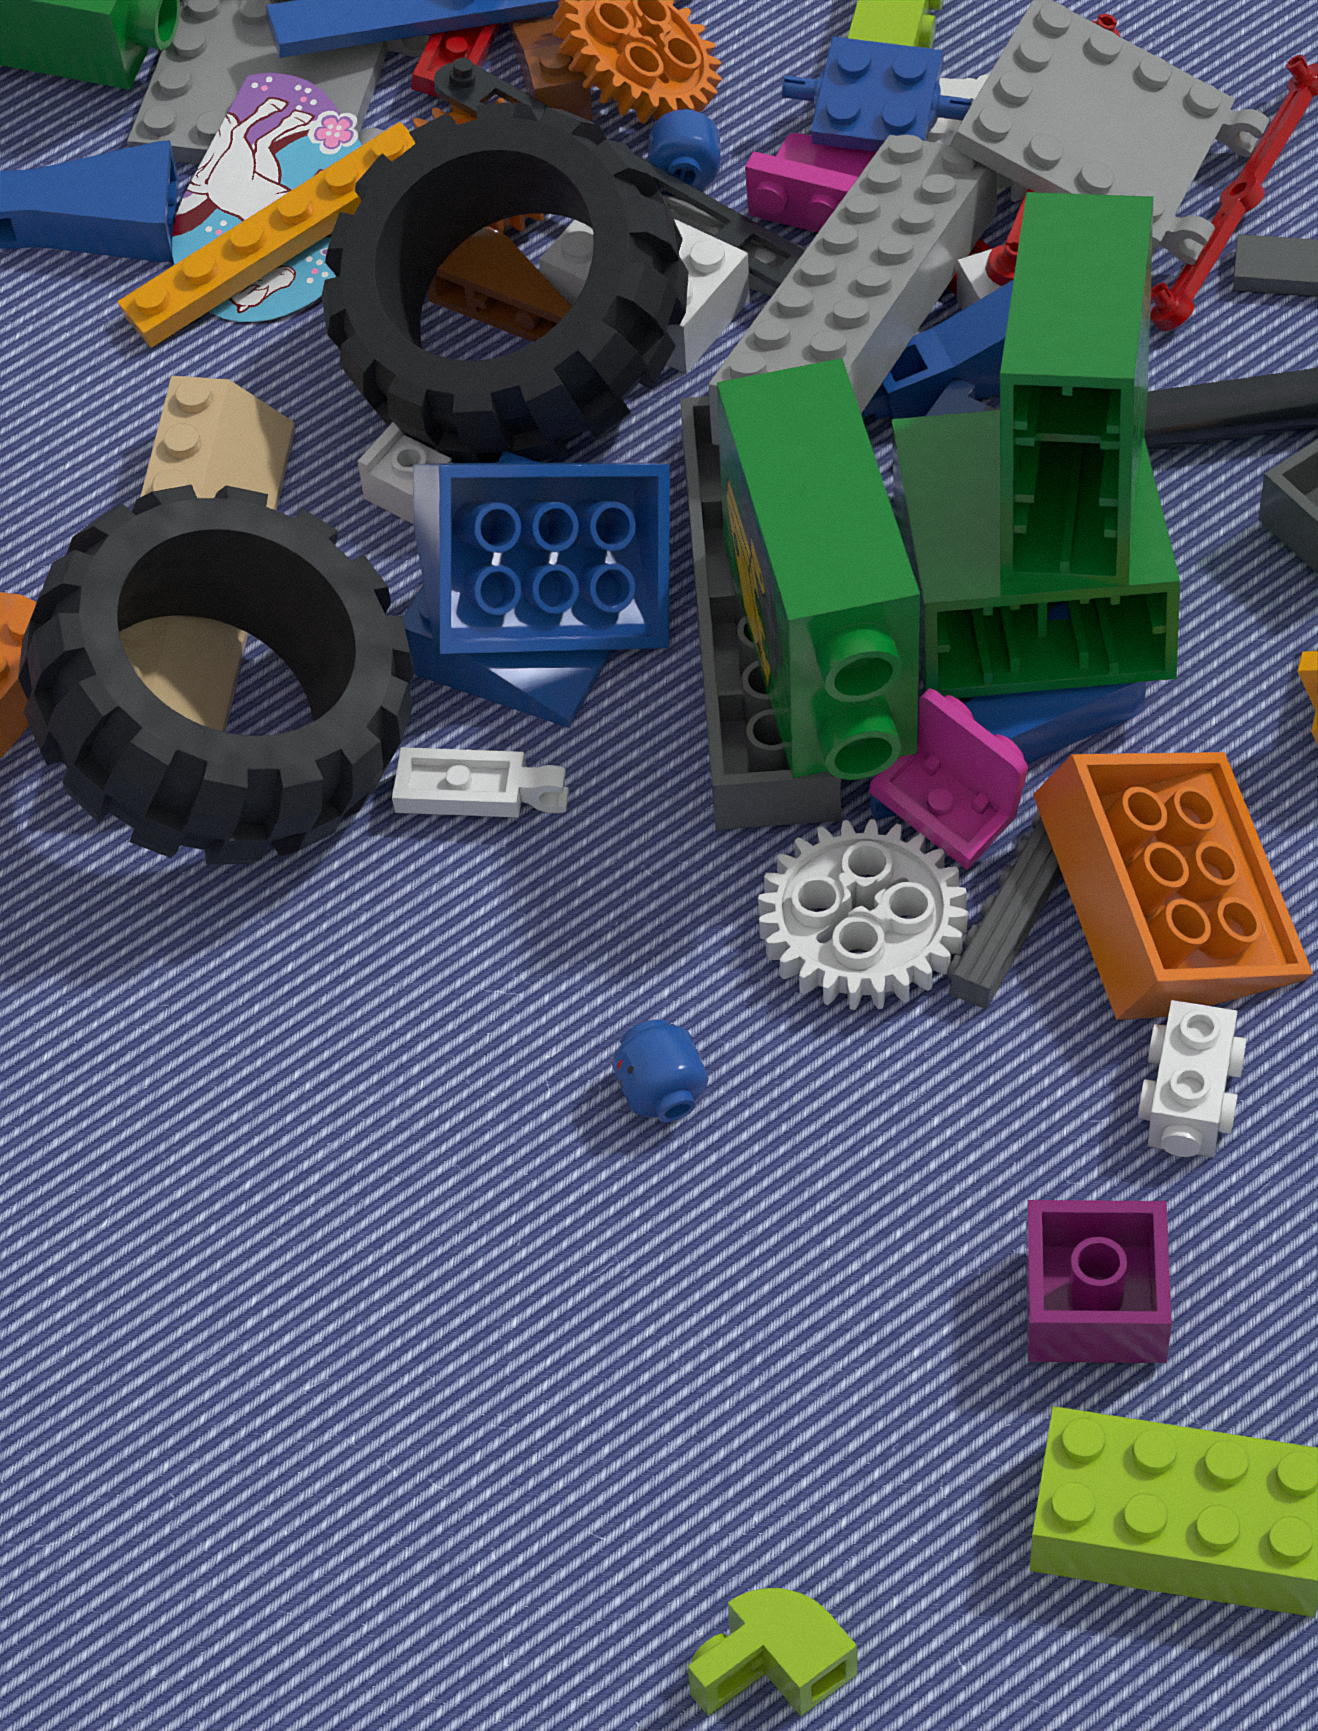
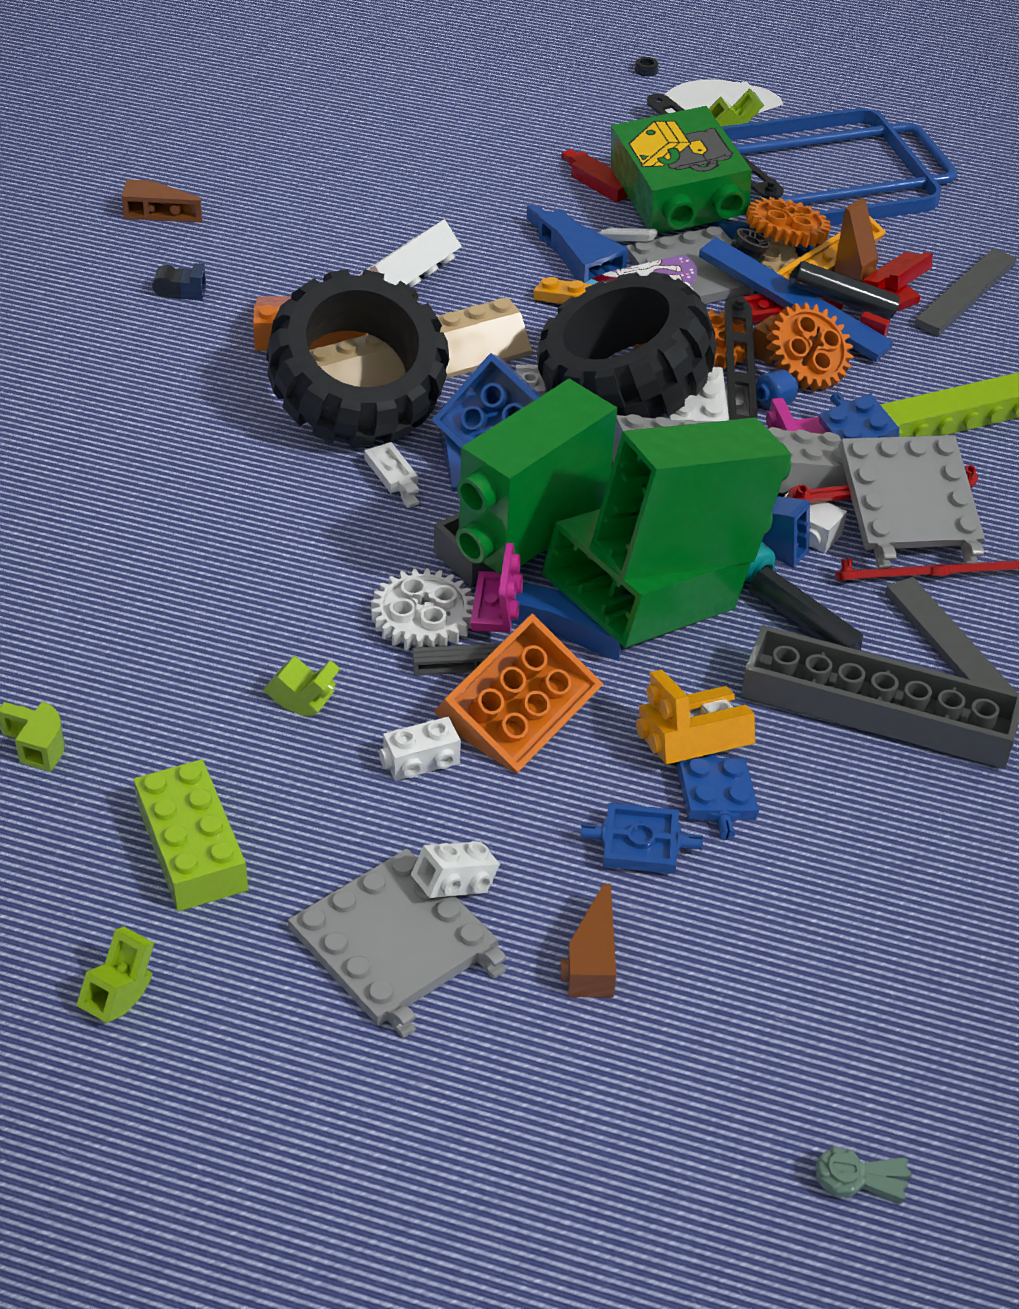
camera: 50 degrees right, 10 degrees down
(108, 118) = (629, 234): none -> white tile
(659, 1070) = (292, 580): blue head -> none
(942, 1184) = (300, 688): none -> lime brick
(1097, 1281) = (284, 754): magenta brick -> none

